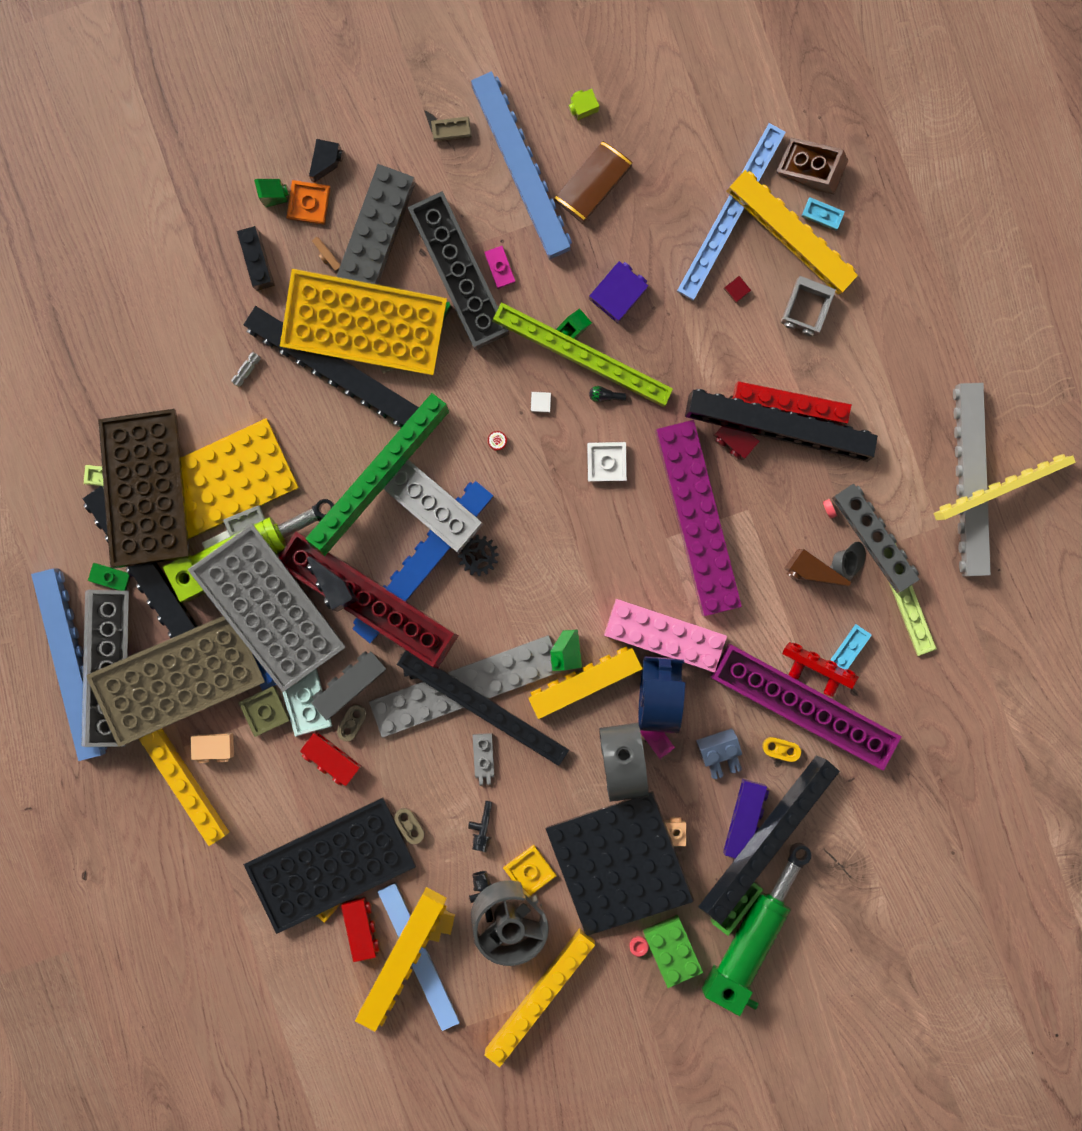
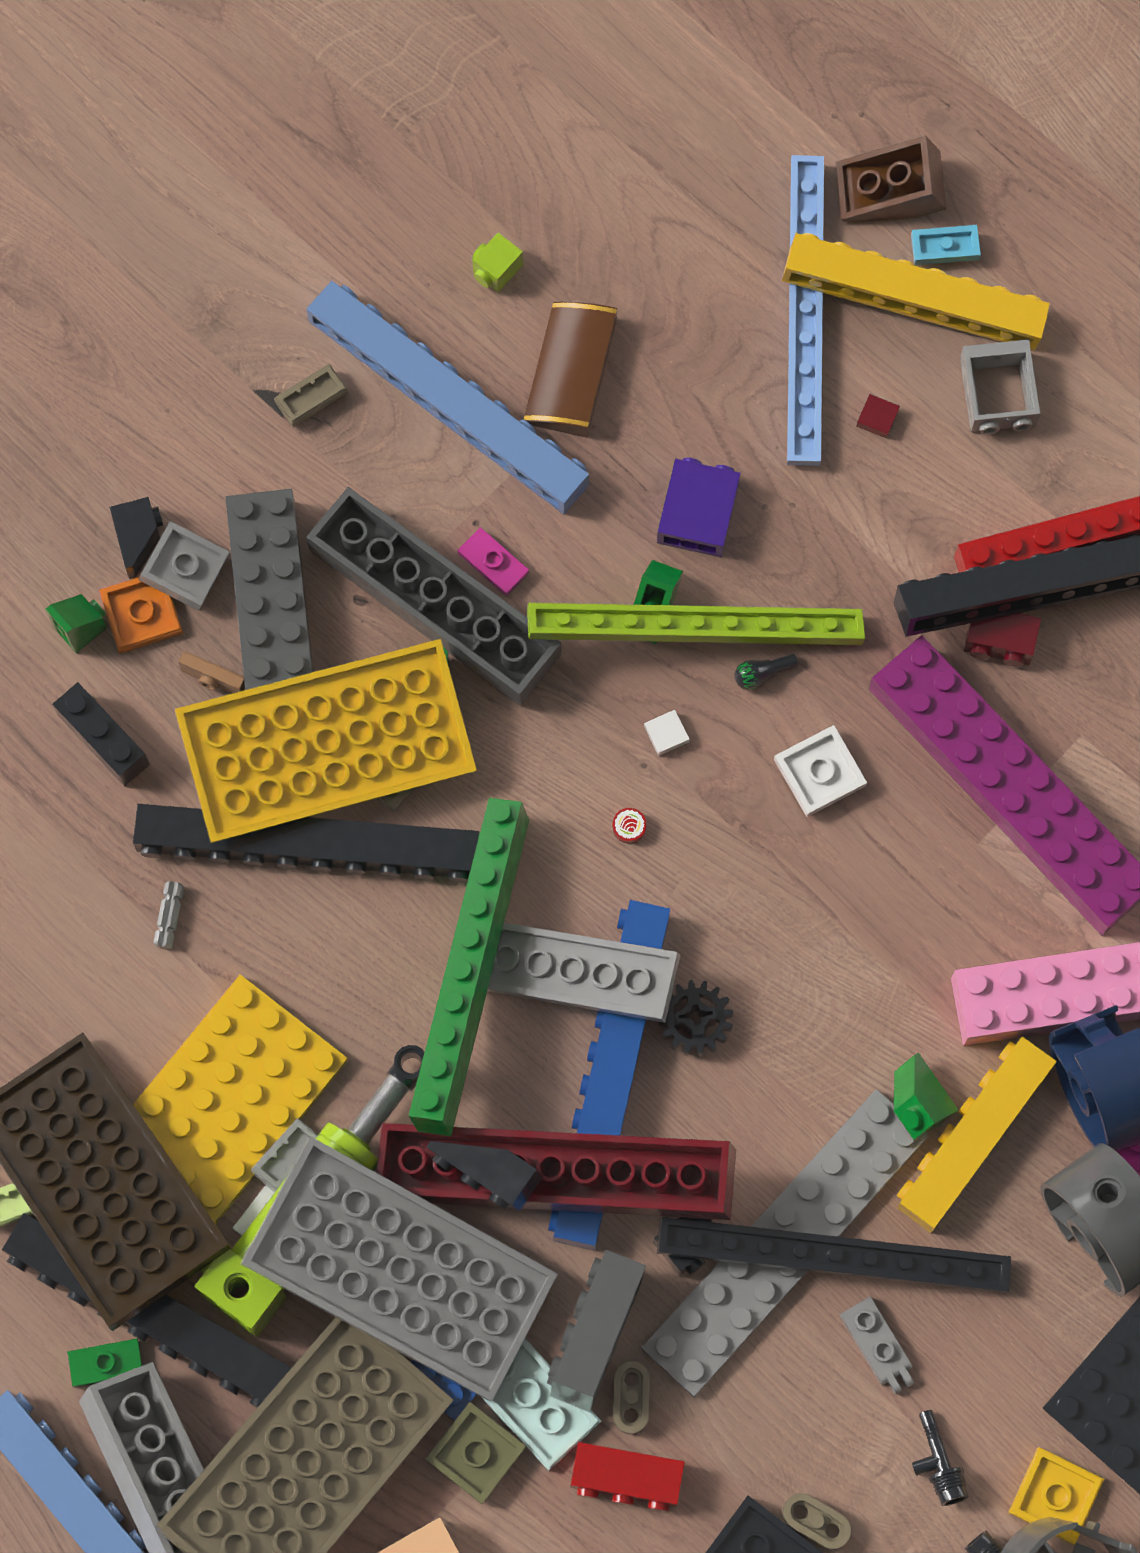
camera: 25 degrees left, 15 degrees down
(340, 189) = (184, 565): none -> light grey plate

